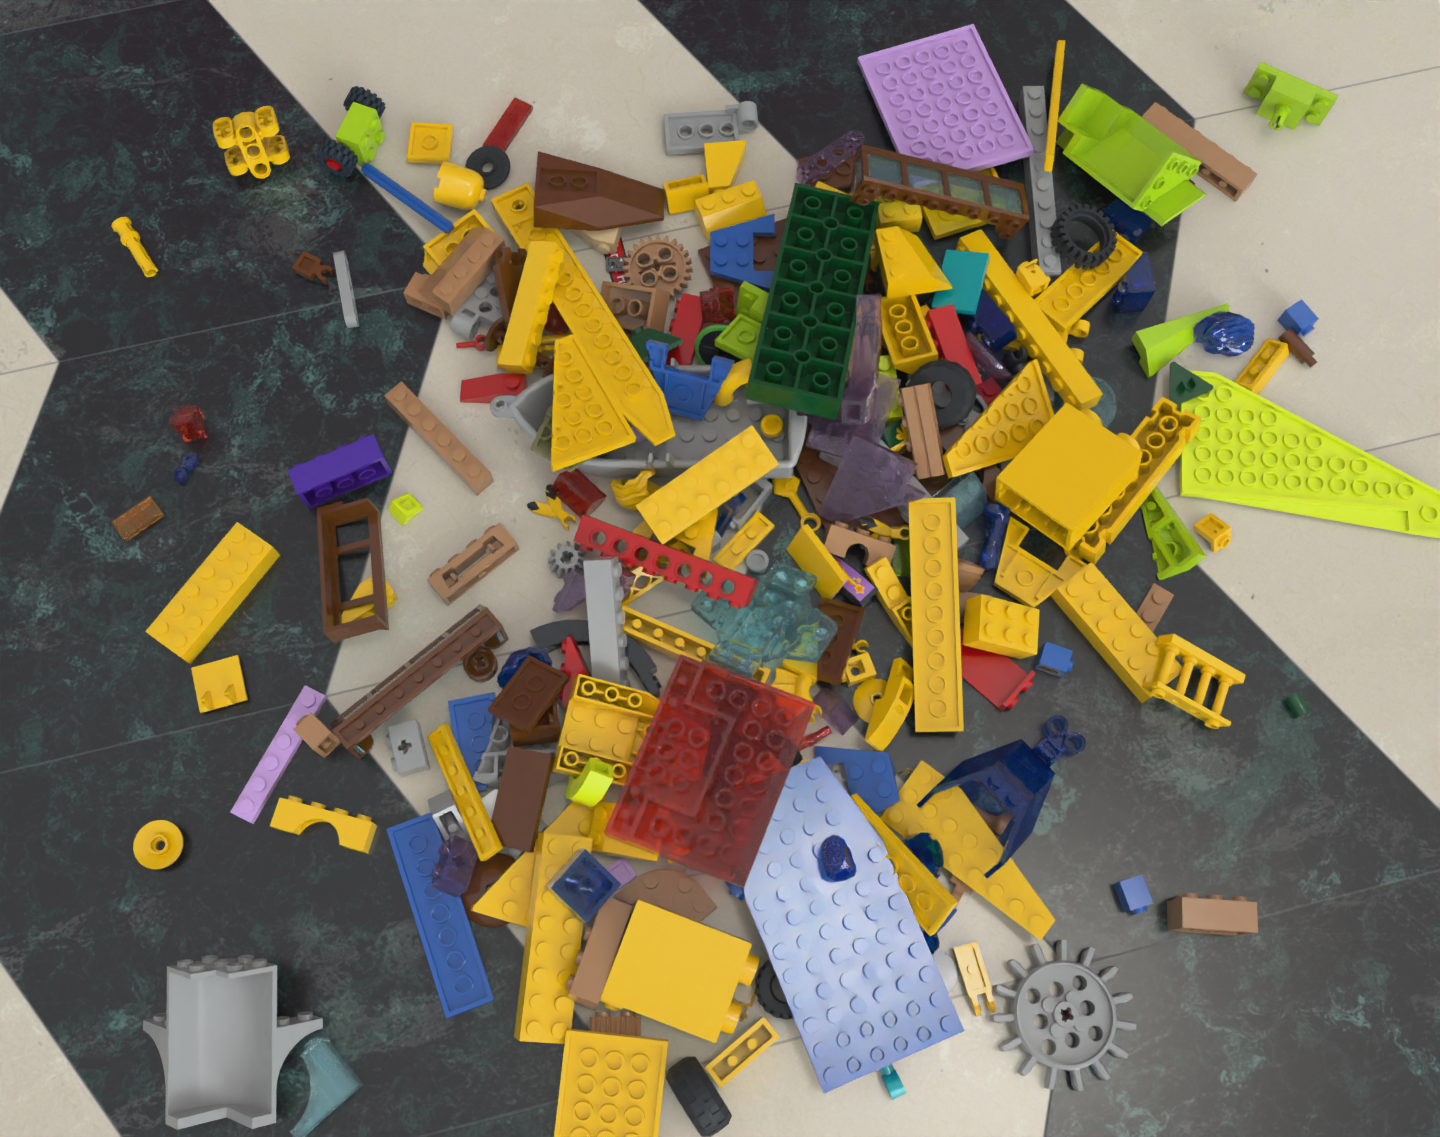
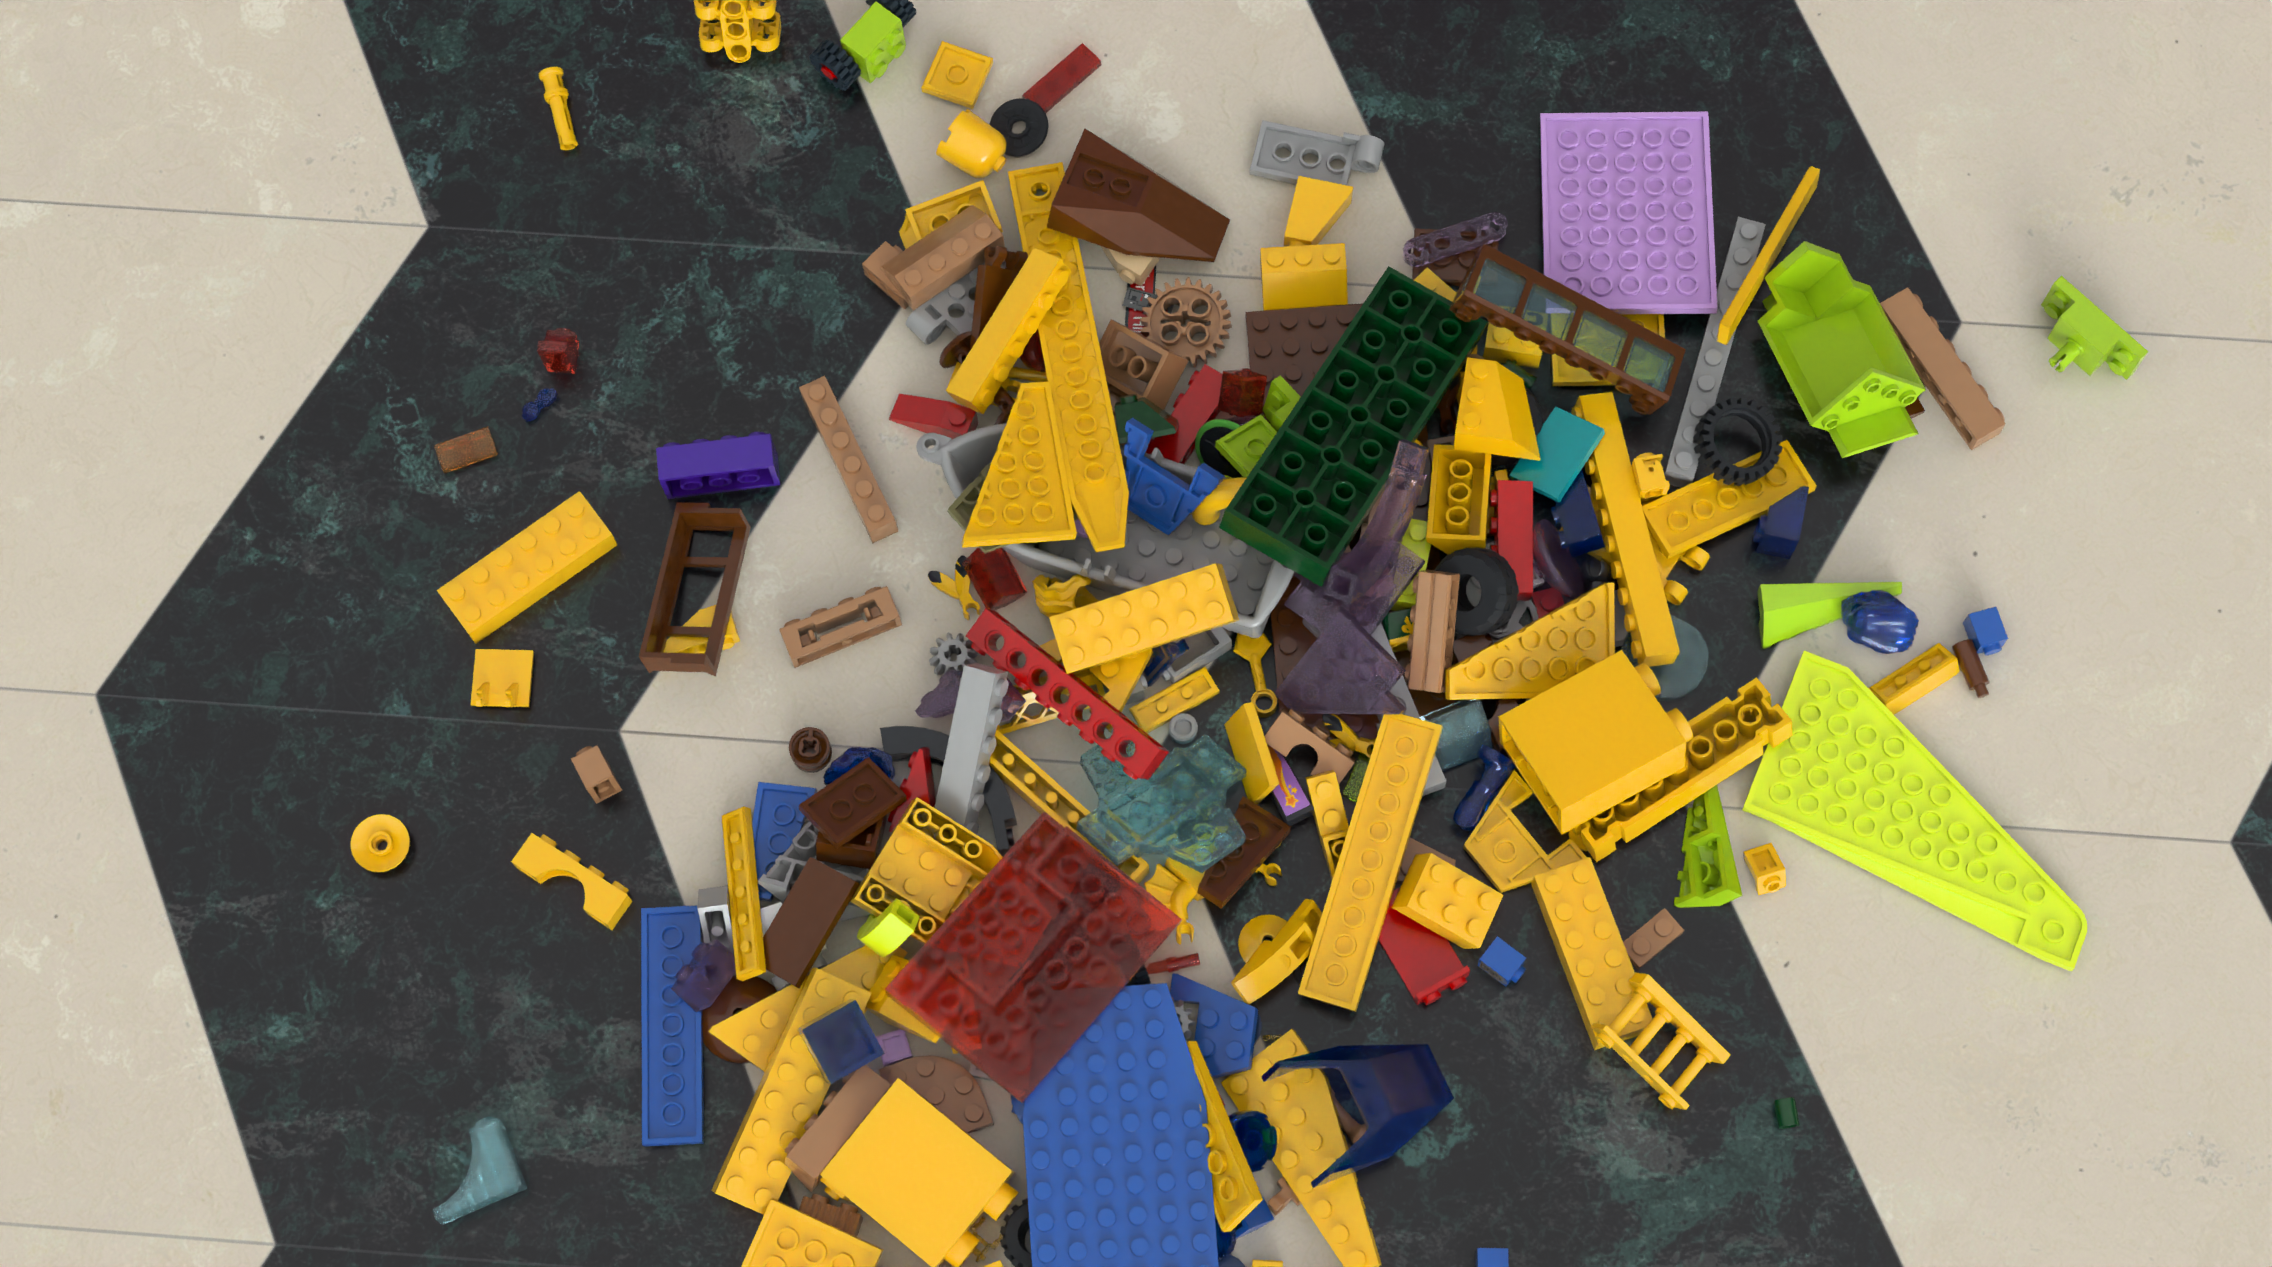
camera: 25 degrees right, 0 degrees up
(224, 1040) = (391, 1084): light grey cylinder -> none
(276, 757) = (542, 784): lavender plate -> none
(311, 267) = (761, 195): reddish brown plate -> none
(346, 289) = (795, 236): light grey beam -> none
(404, 508) = (781, 533): neon yellow slope -> none
(407, 198) = (906, 141): blue axle -> none
(415, 676) = (729, 740): reddish brown window -> none
(416, 758) = (701, 838): light grey brick -> none
(479, 338) = (927, 350): red hand -> none
(682, 192) = (1254, 231): yellow brick -> none
(733, 252) = (1288, 327): blue wing -> none
(771, 426) = (1250, 568): yellow tile -> none
(835, 710) = (1213, 939): slope -> none
(837, 859) = (1142, 1107): clear blue rock -> none
(863, 665) = (1263, 890): yellow brick -> none
(968, 574) = (1431, 823): medium nougat hat -> none
(1056, 743) = (1466, 1062): clear blue piece -> none
(1127, 221) = (1809, 443): clear blue brick -> none
(1185, 384) = (1801, 672): dark green piece -> none

